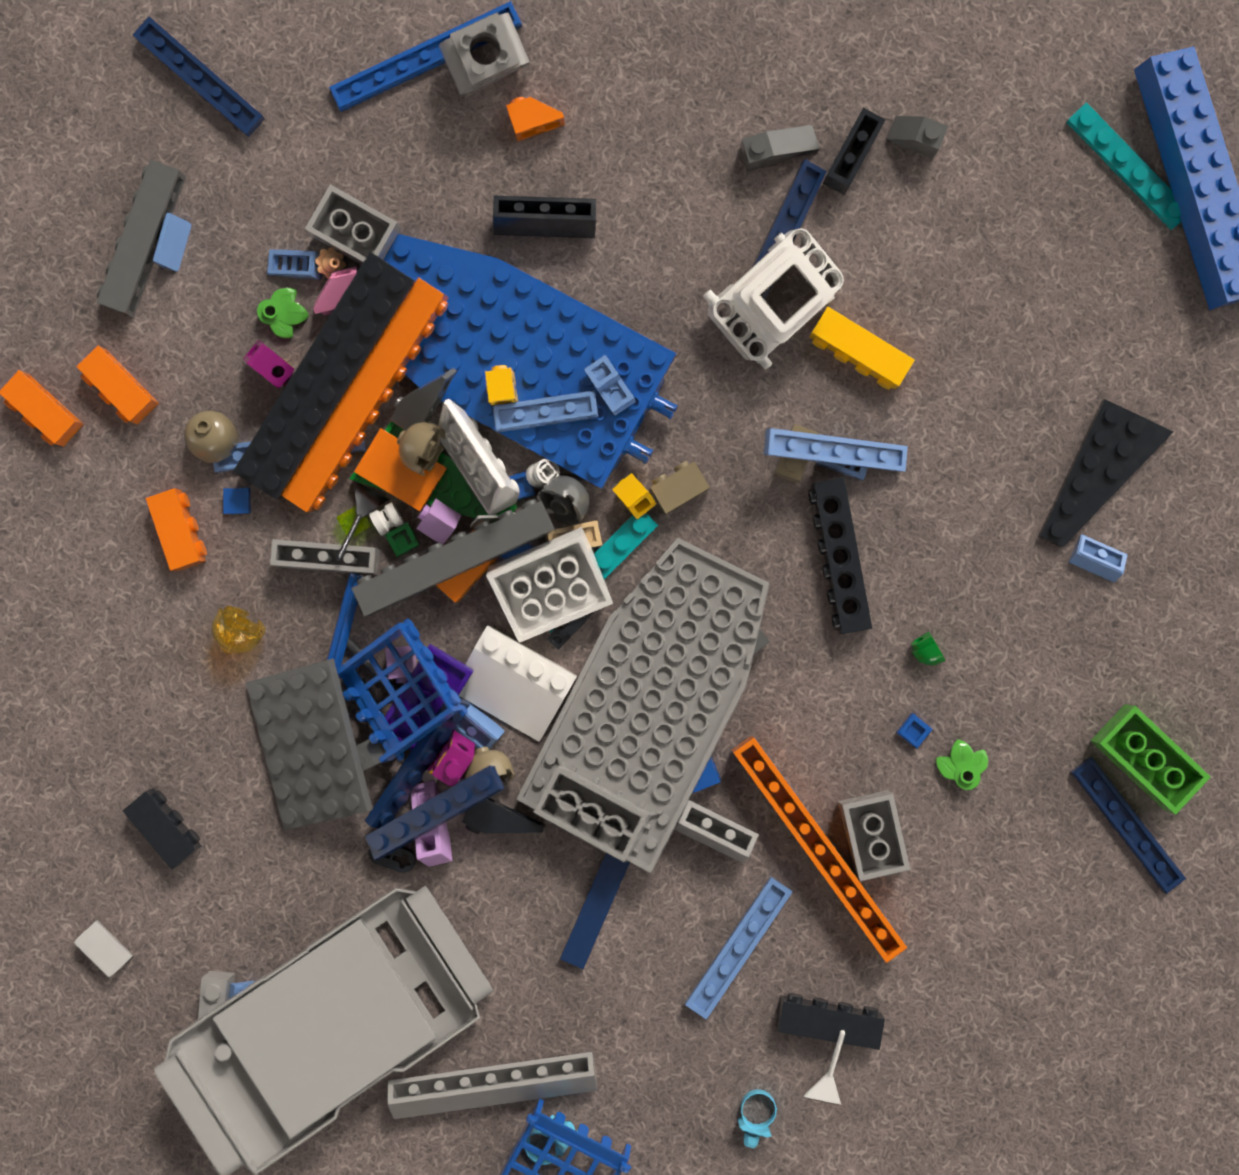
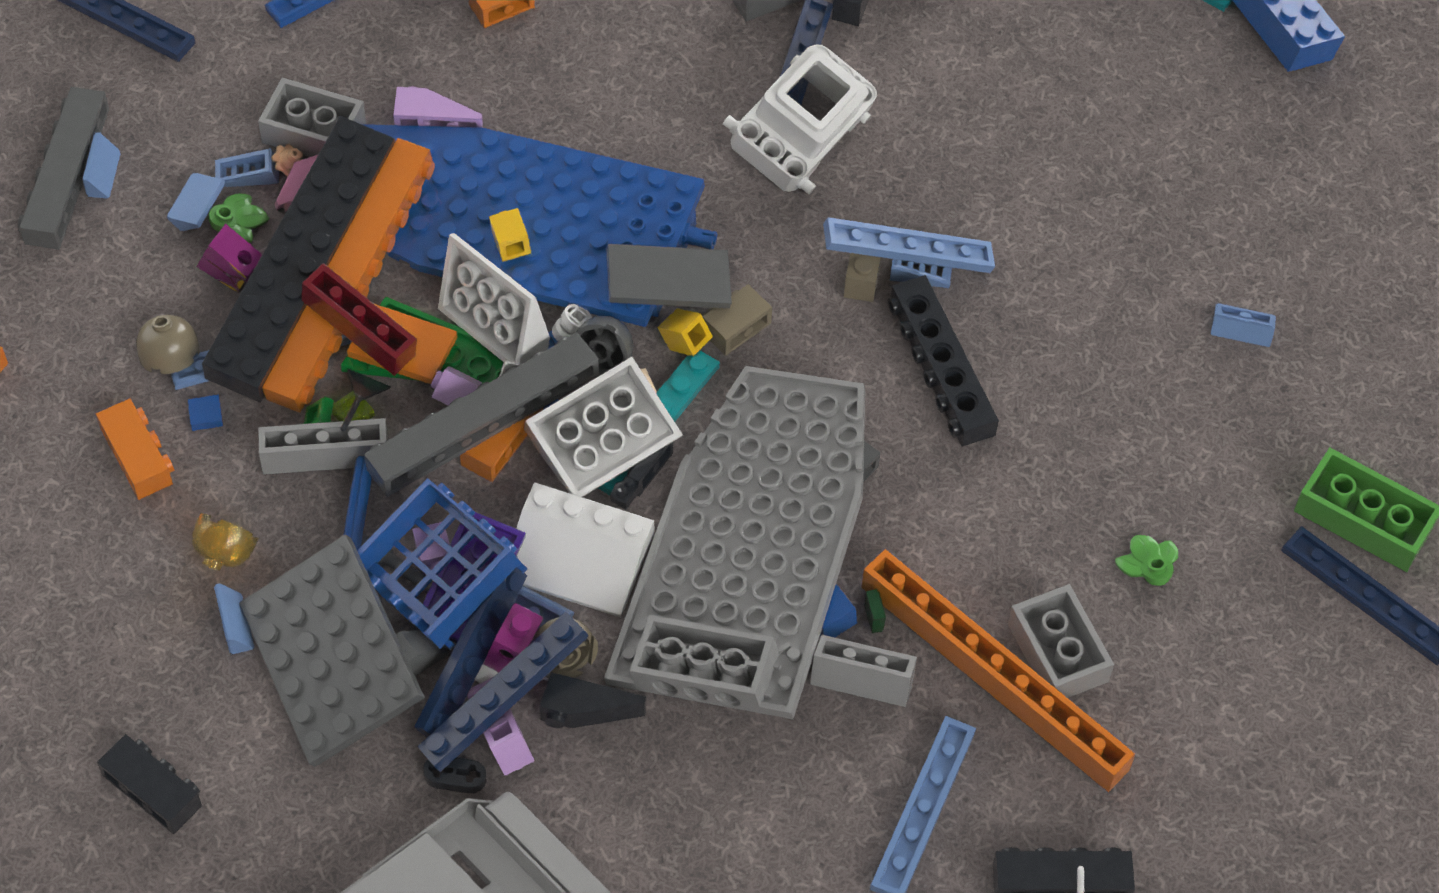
camera: 15 degrees left, 30 degrees down
(116, 386) = (48, 312): orange brick -> none
(238, 697) = (233, 619): none -> medium blue slope
(247, 292) = (195, 201): none -> medium blue slope
(325, 524) = (319, 411): none -> green tile
(362, 457) = (358, 319): none -> dark red brick
(381, 521) = (392, 400): white wheel -> none
(402, 539) = (410, 415): dark green plate -> none
(420, 446) = (424, 301): dark tan cylinder -> none
(422, 402) = (416, 272): dark grey slope -> none
(450, 229) = (426, 108): none -> lavender slope
(544, 216) = (528, 82): black brick -> none
(545, 411) = (562, 253): medium blue tile -> none
(594, 911) = (731, 790): dark blue tile -> none
(610, 385) = (634, 216): medium blue slope -> none
(627, 451) = (668, 276): none -> dark grey tile
(736, 777) = (874, 611): none -> dark green tile
(861, 348) = (913, 157): yellow brick -> none
(914, 730) = (1079, 532): blue tile -> none
(926, 650) = (1072, 441): green piece -> none
(1106, 459) = (1219, 230): black wing -> none

